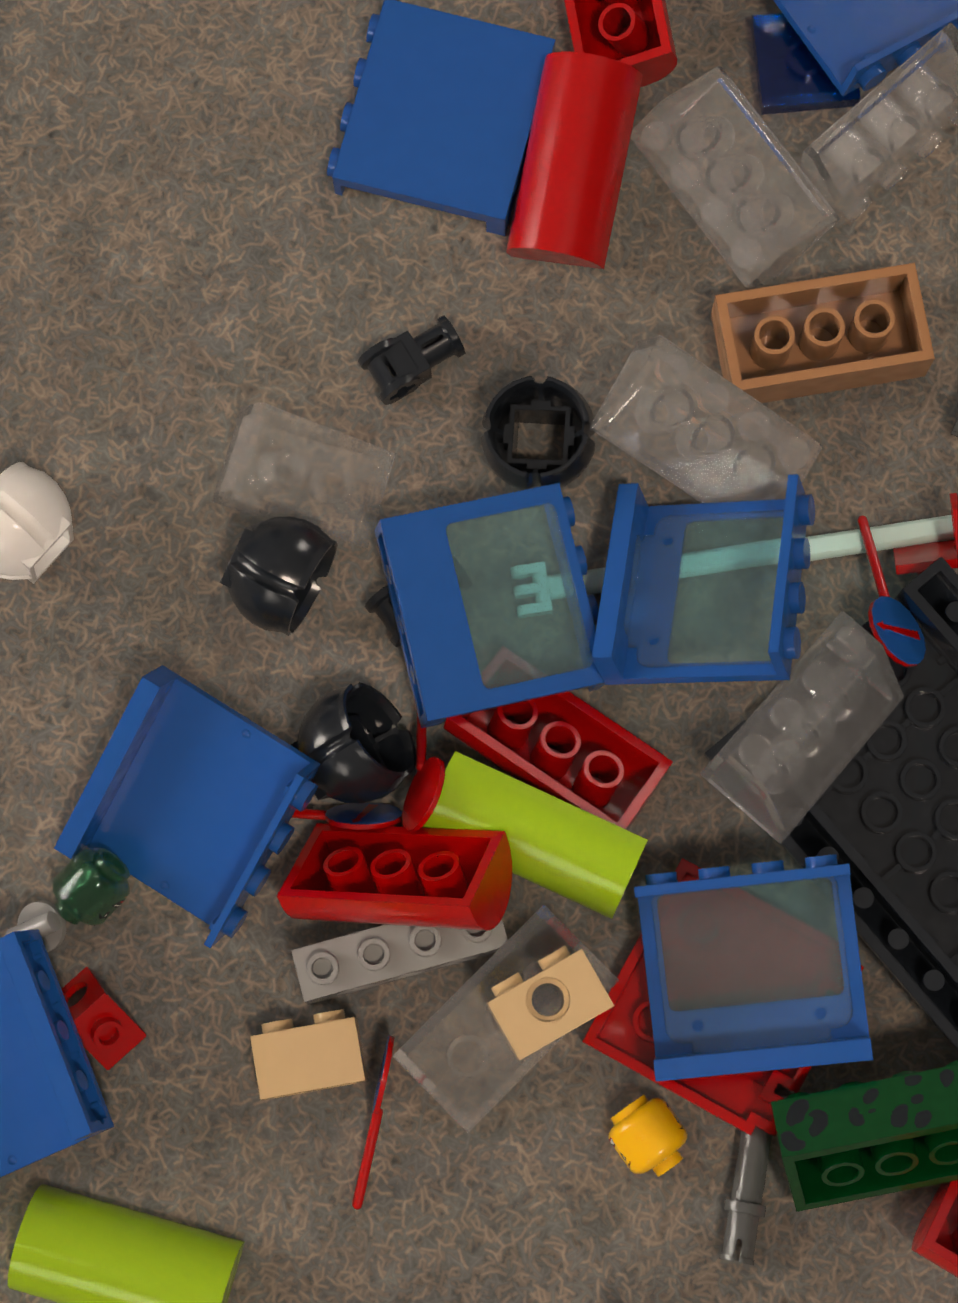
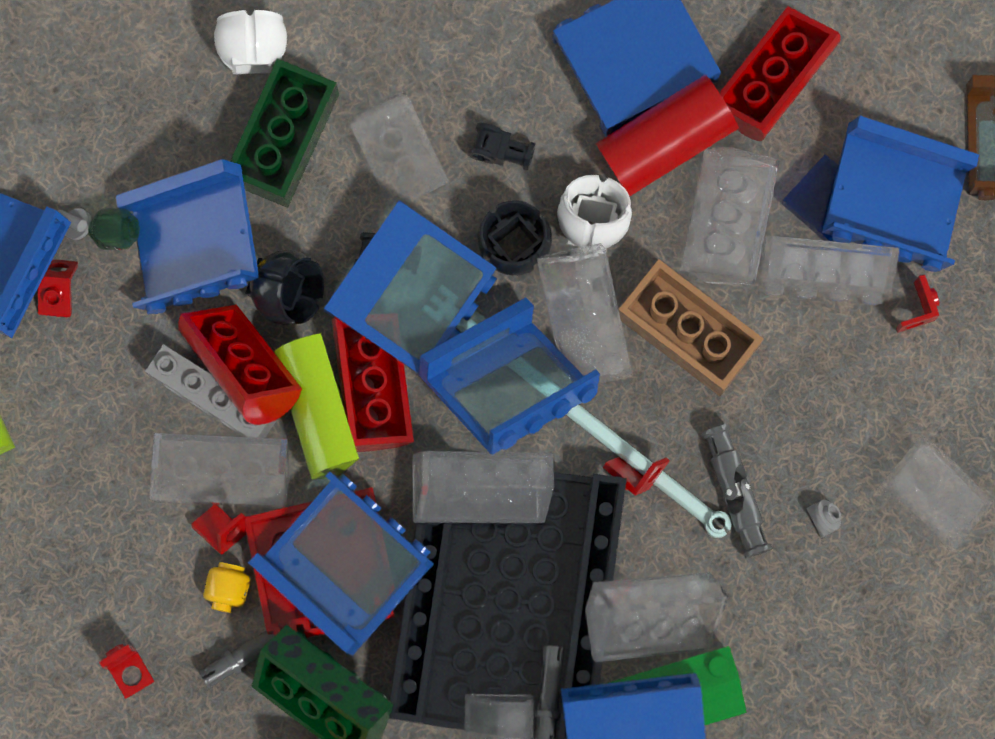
camera: 45 degrees right, 0 degrees up
(161, 582) = (284, 131): none -> dark green brick
(277, 571) = (337, 179): black piece -> none
(308, 1056) = (124, 398): tan brick -> none
(355, 816) = (254, 319): piece -> none
(374, 1127) = (126, 451): red piece -> none
(425, 786) = (294, 334): red piece -> none
(570, 1081) = (220, 529): none -> red bracket
(581, 1001) = (219, 476): tan brick -> none
(582, 305) = (597, 202): none -> white piece
(888, 618) = (573, 484): piece -> none

